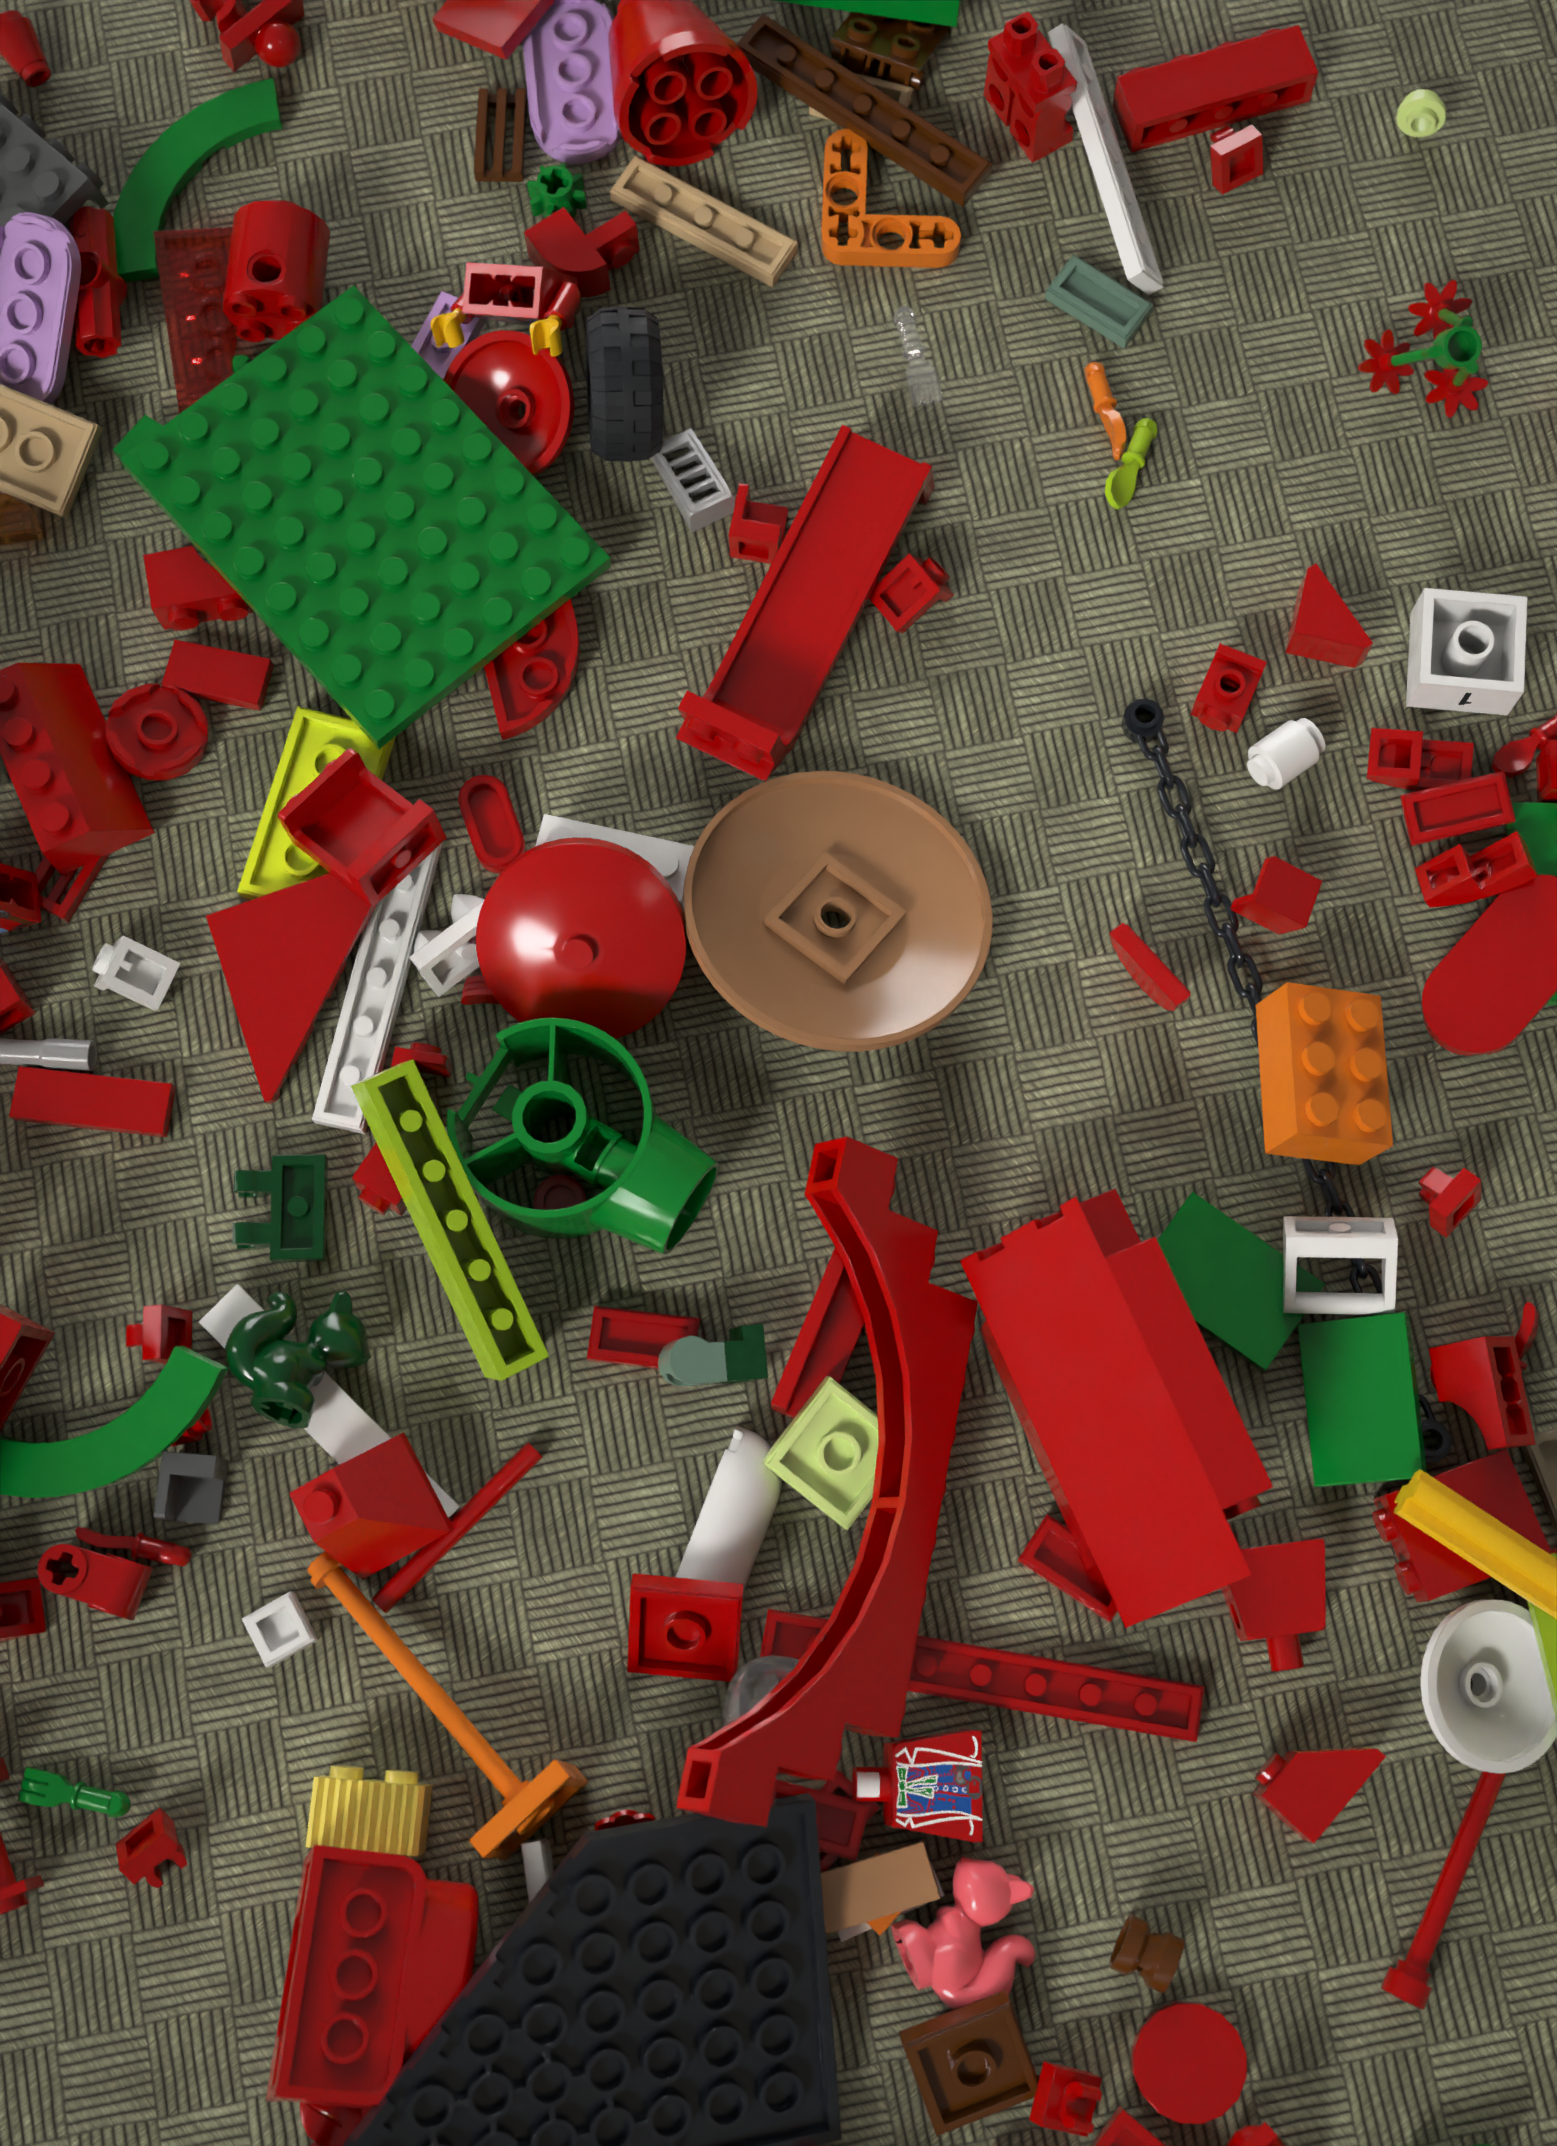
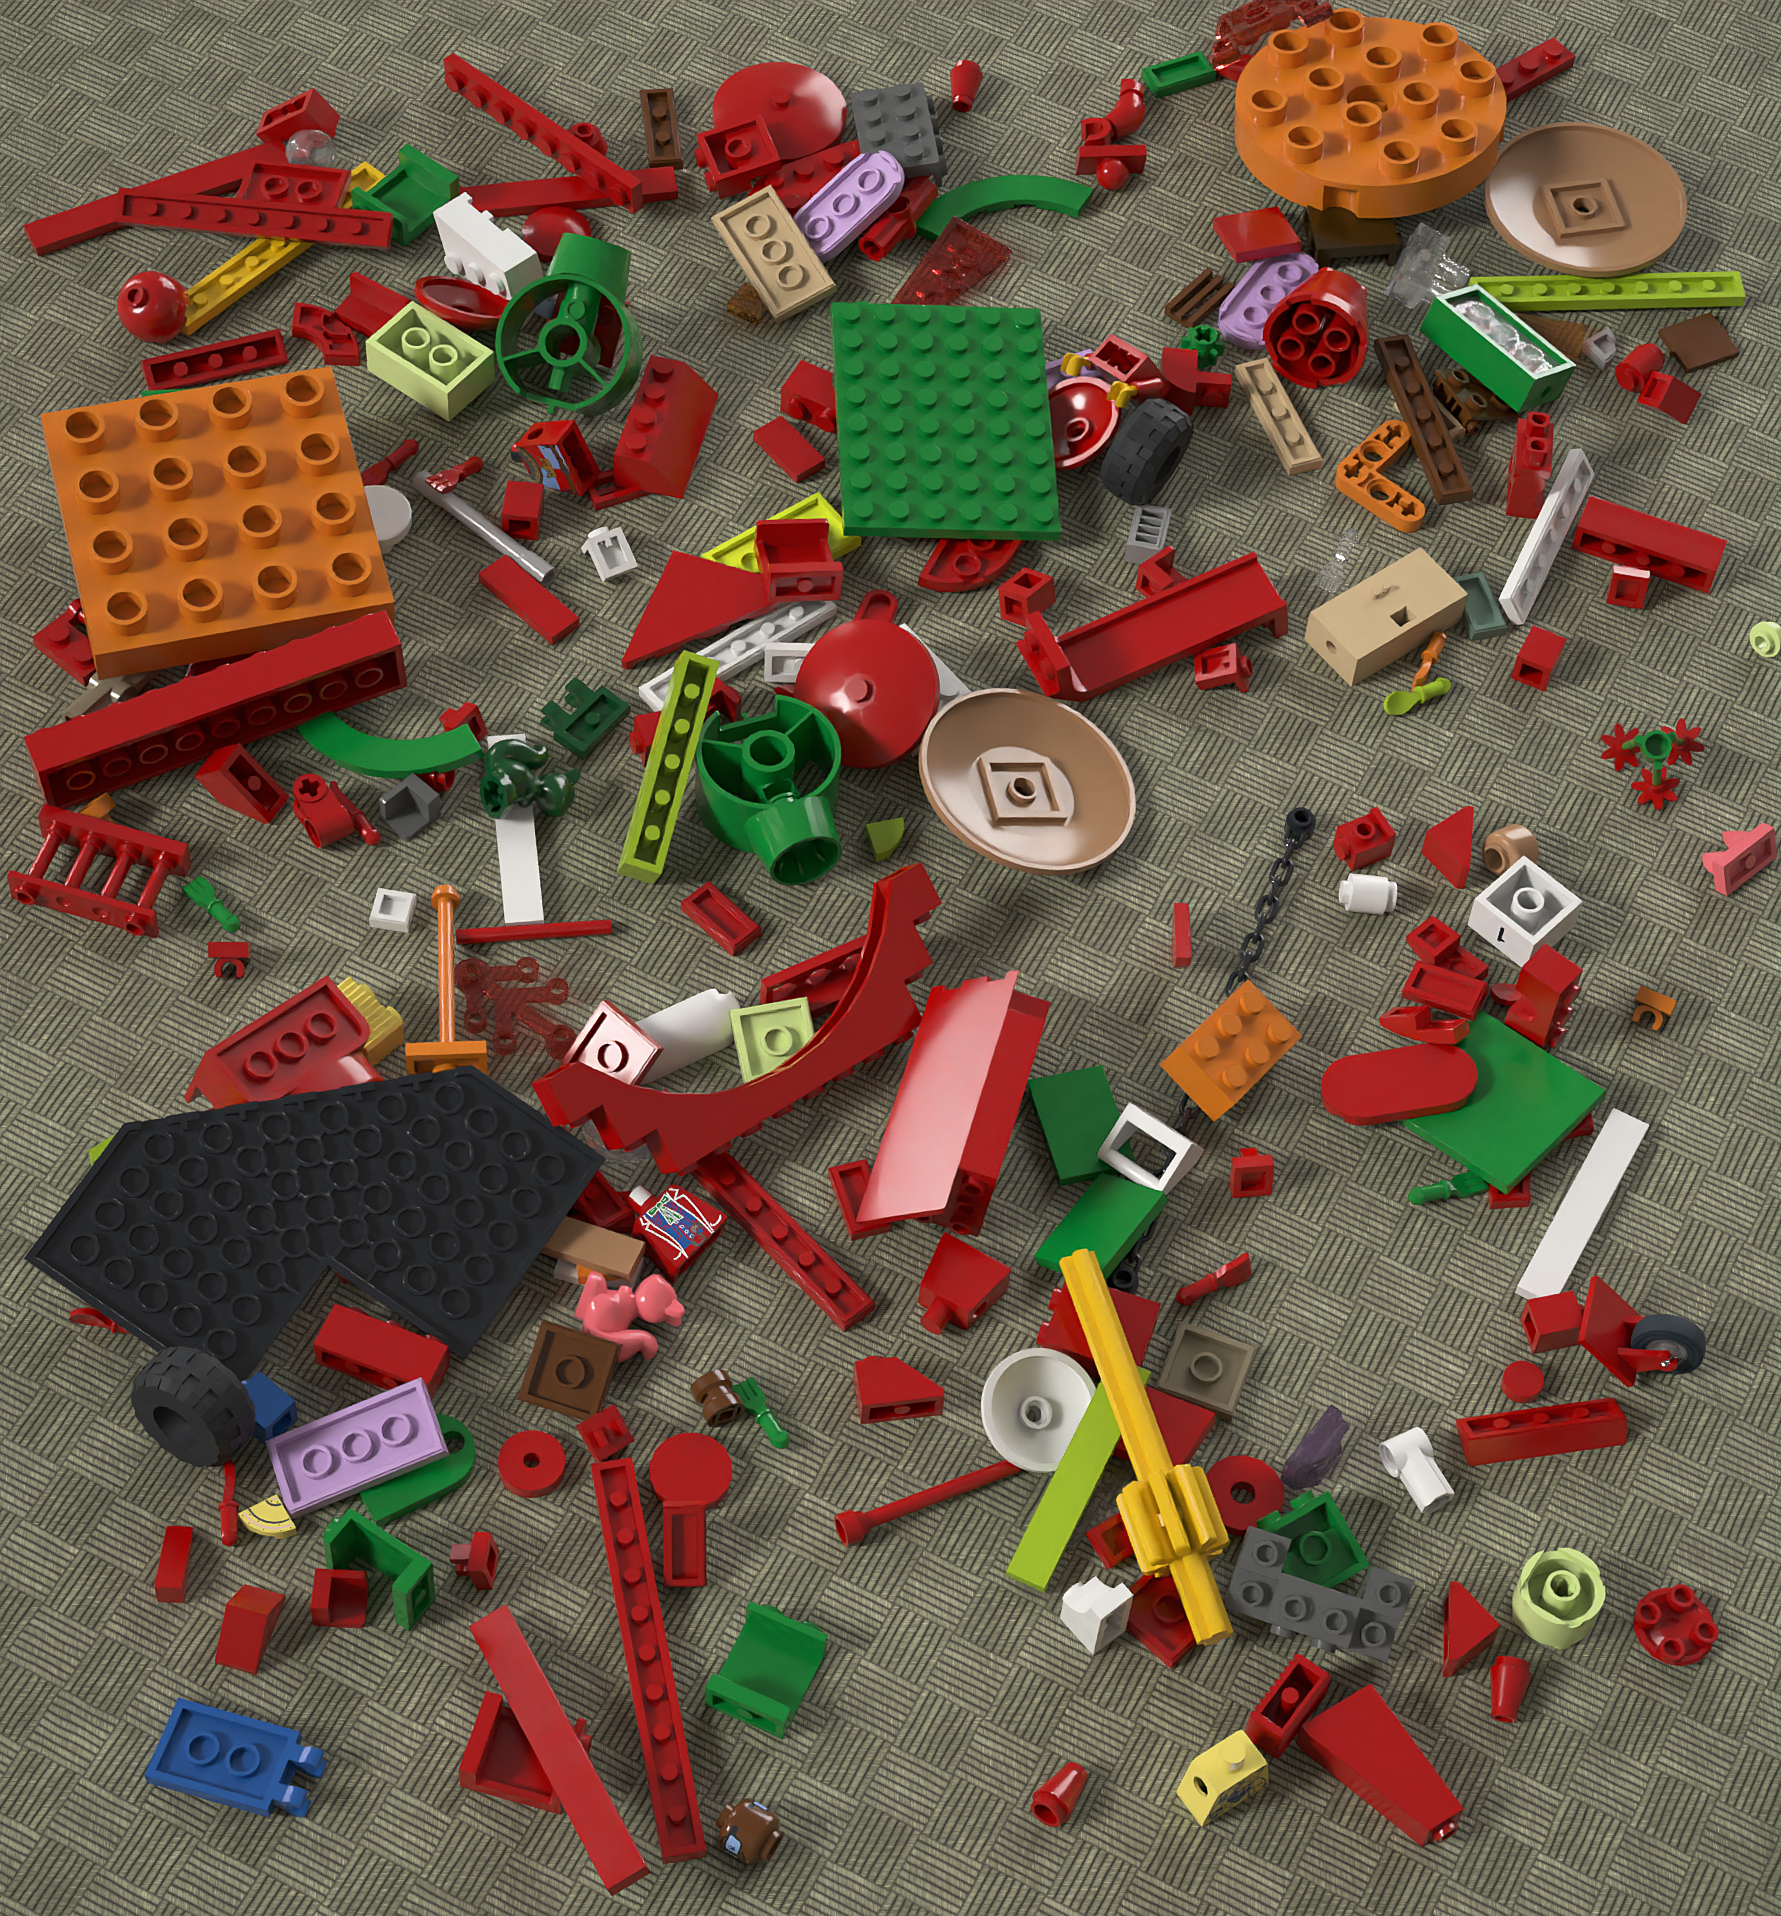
camera: 30 degrees right, 20 degrees down
(157, 732) = (729, 451): red tile -> none
(275, 269) = (1004, 272): red cylinder -> none
(373, 1508) = (497, 879): red slope -> none
(509, 1642) = (512, 1002): none -> clear red plant
(635, 666) = (1025, 594): none -> red brick
(697, 1362) = (748, 946): leg -> none
(733, 1091) = (885, 837): none -> lime tile
(1026, 391) = (1385, 616): none -> tan brick
(1179, 1915) = (756, 1404): none -> green piece
(1219, 319) = (1538, 658): none -> red brick
(1280, 897) = (1291, 953): red panel -> none
(1384, 583) = (1507, 846): none -> medium nougat head
(1488, 1384) = (1180, 1267): red arch -> none

